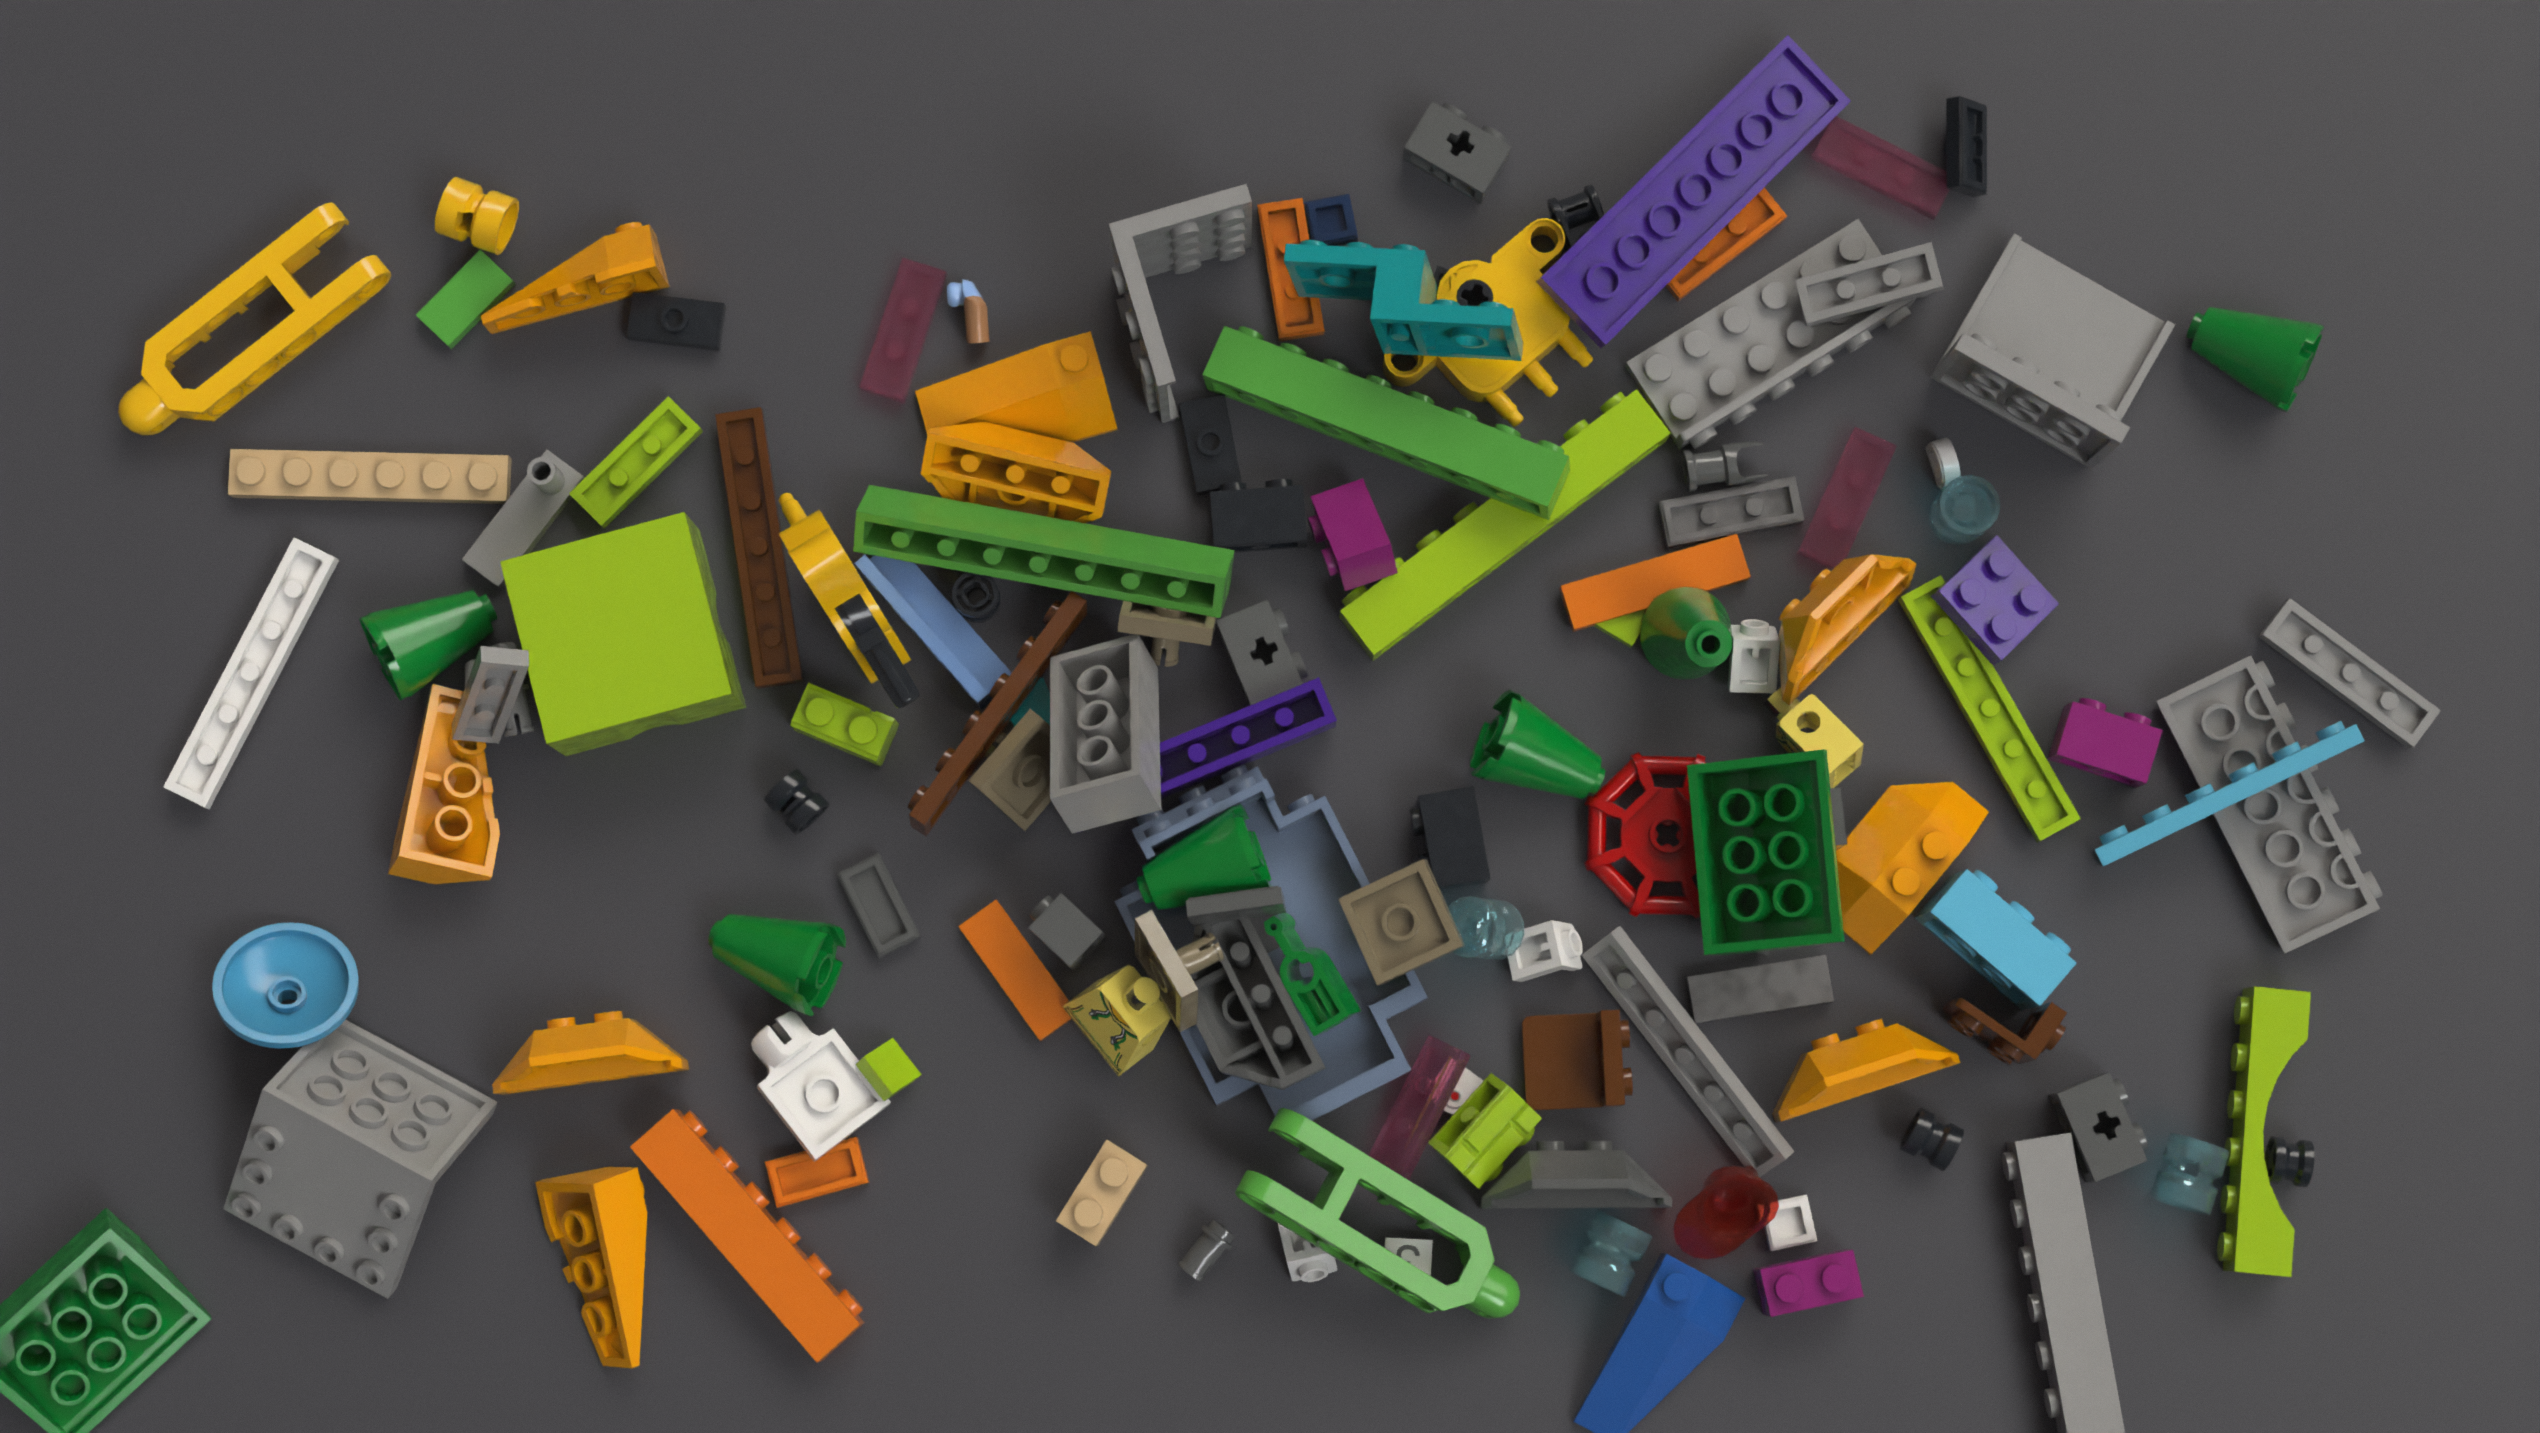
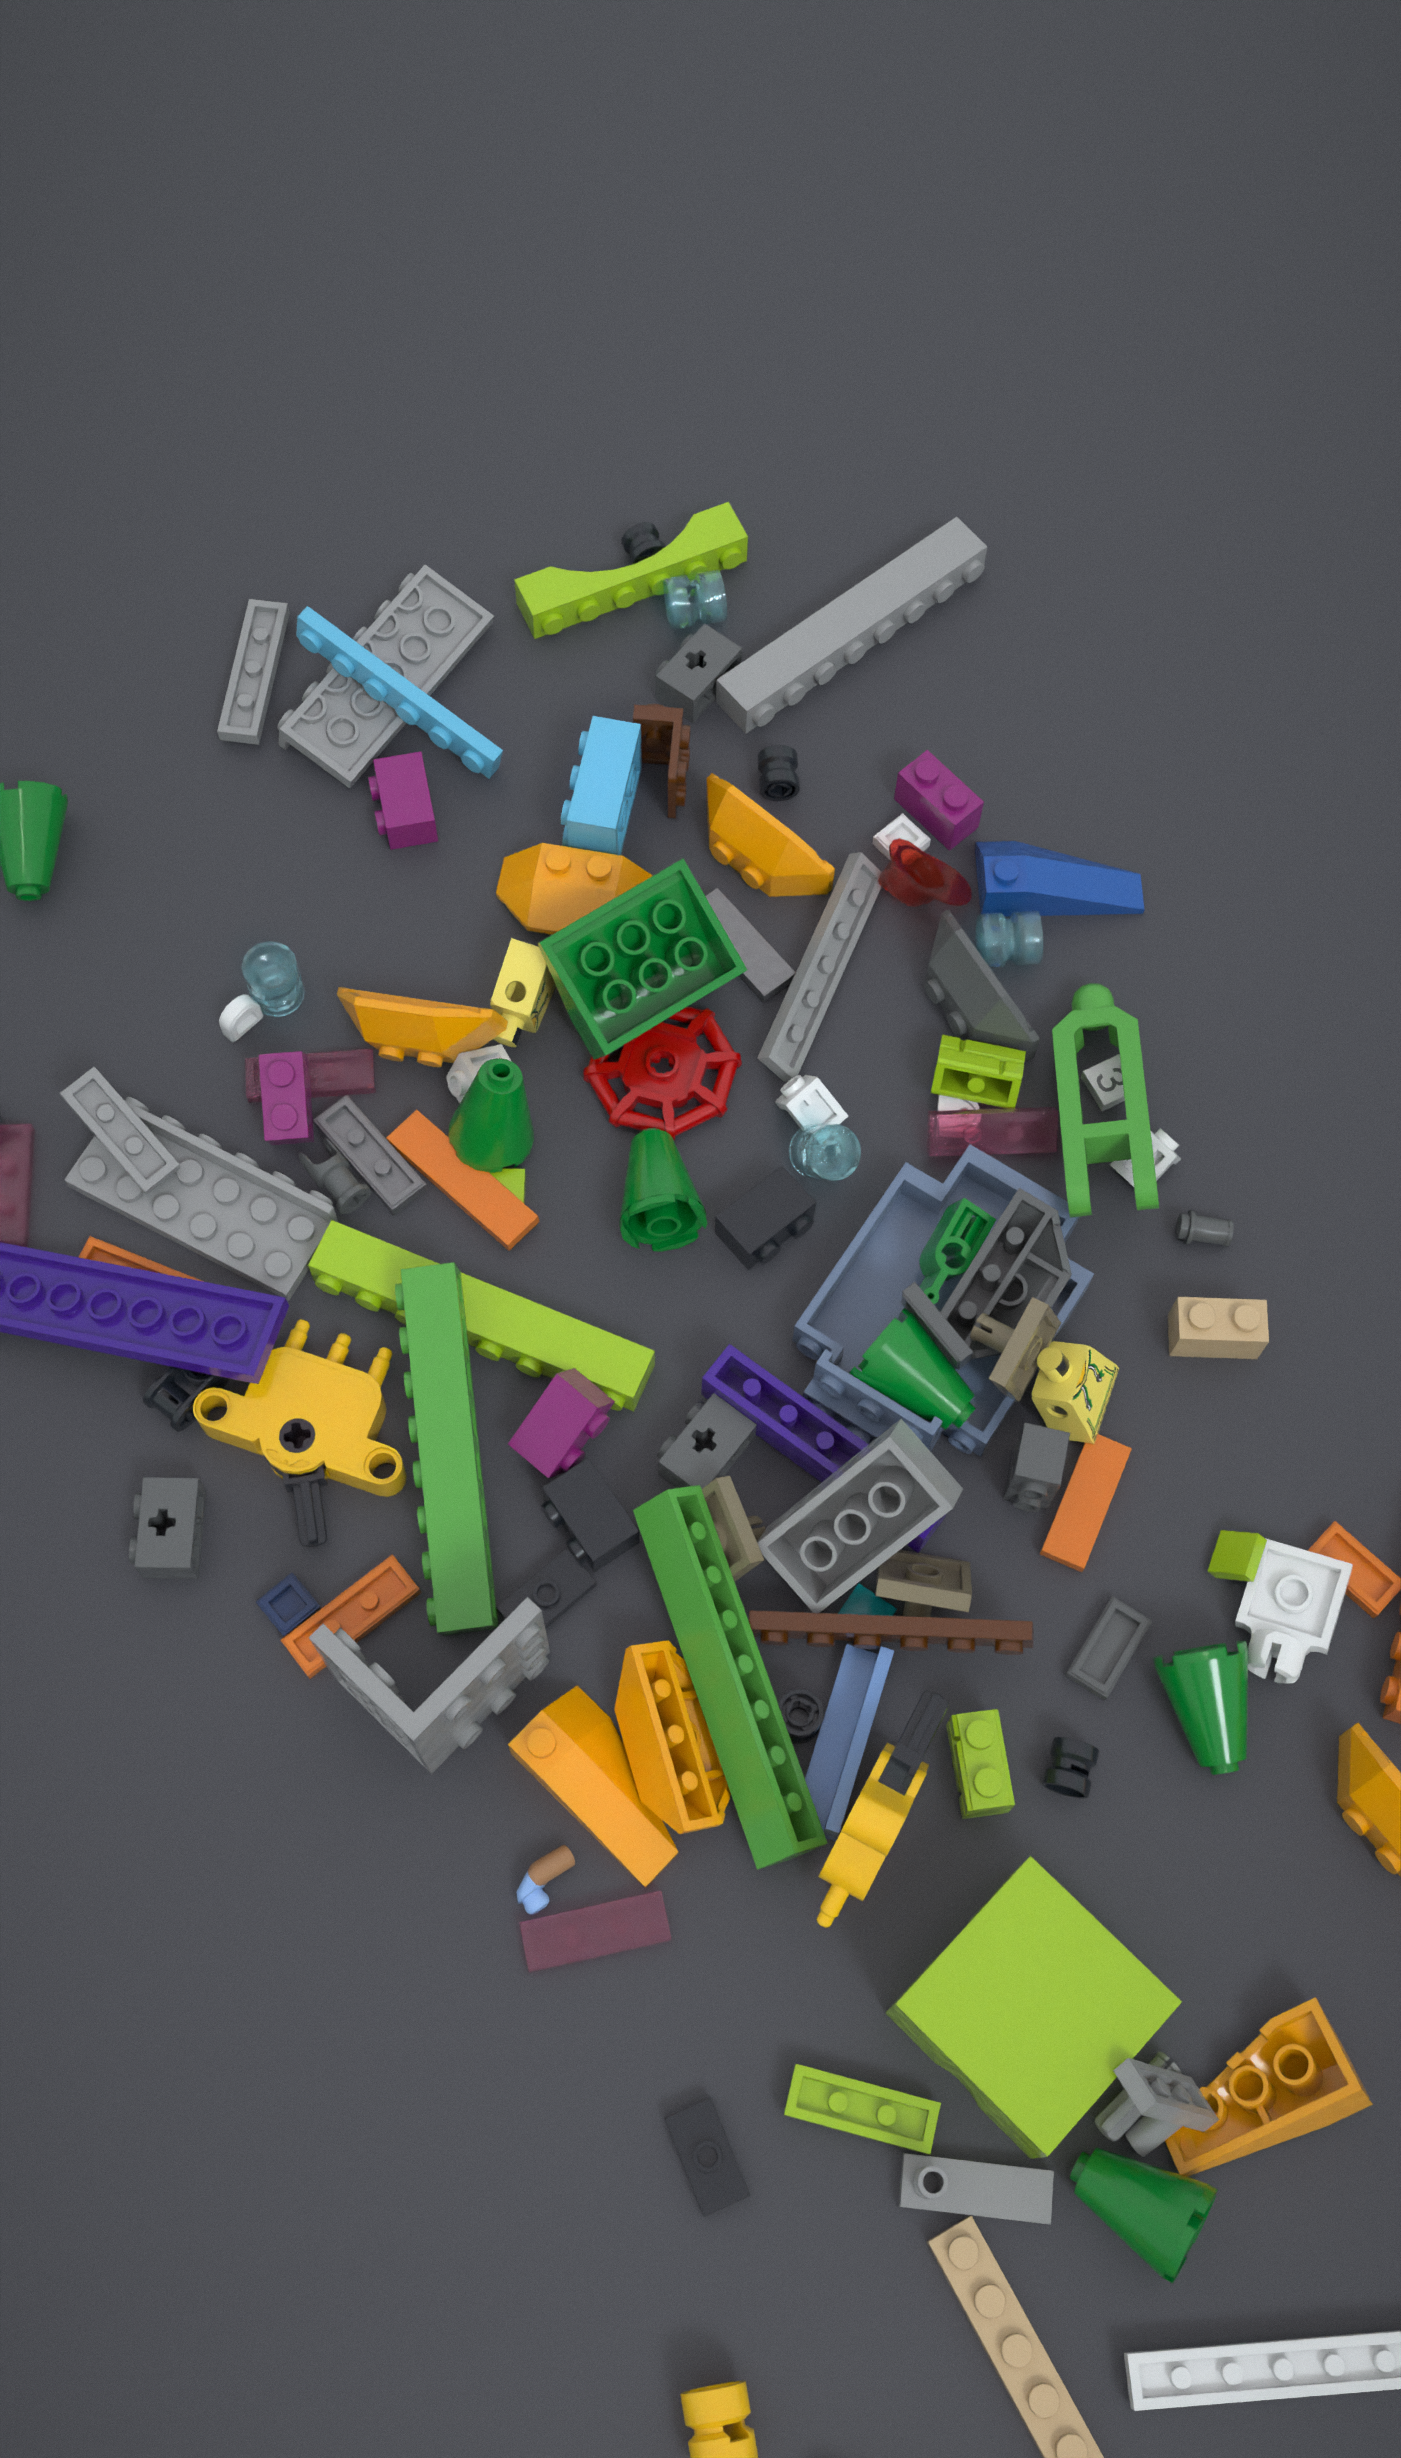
camera: 120 degrees left, 15 degrees down
(464, 298) = (804, 2389): bright green tile -> none
(593, 277) = (699, 2255): light orange wedge -> none
(759, 548) = (869, 1942): reddish brown plate -> none
(1401, 922) = (862, 1205): dark tan tile -> none
(1404, 300) = (334, 1477): teal bracket -> none
(1576, 1060) = (878, 1037): reddish brown bracket -> none
(1822, 456) = (286, 1098): none -> magenta brick
(1991, 715) = (422, 893): lime plate -> none
(1995, 600) = (335, 925): plate -> none
(2053, 353) = (107, 978): light grey bracket -> none

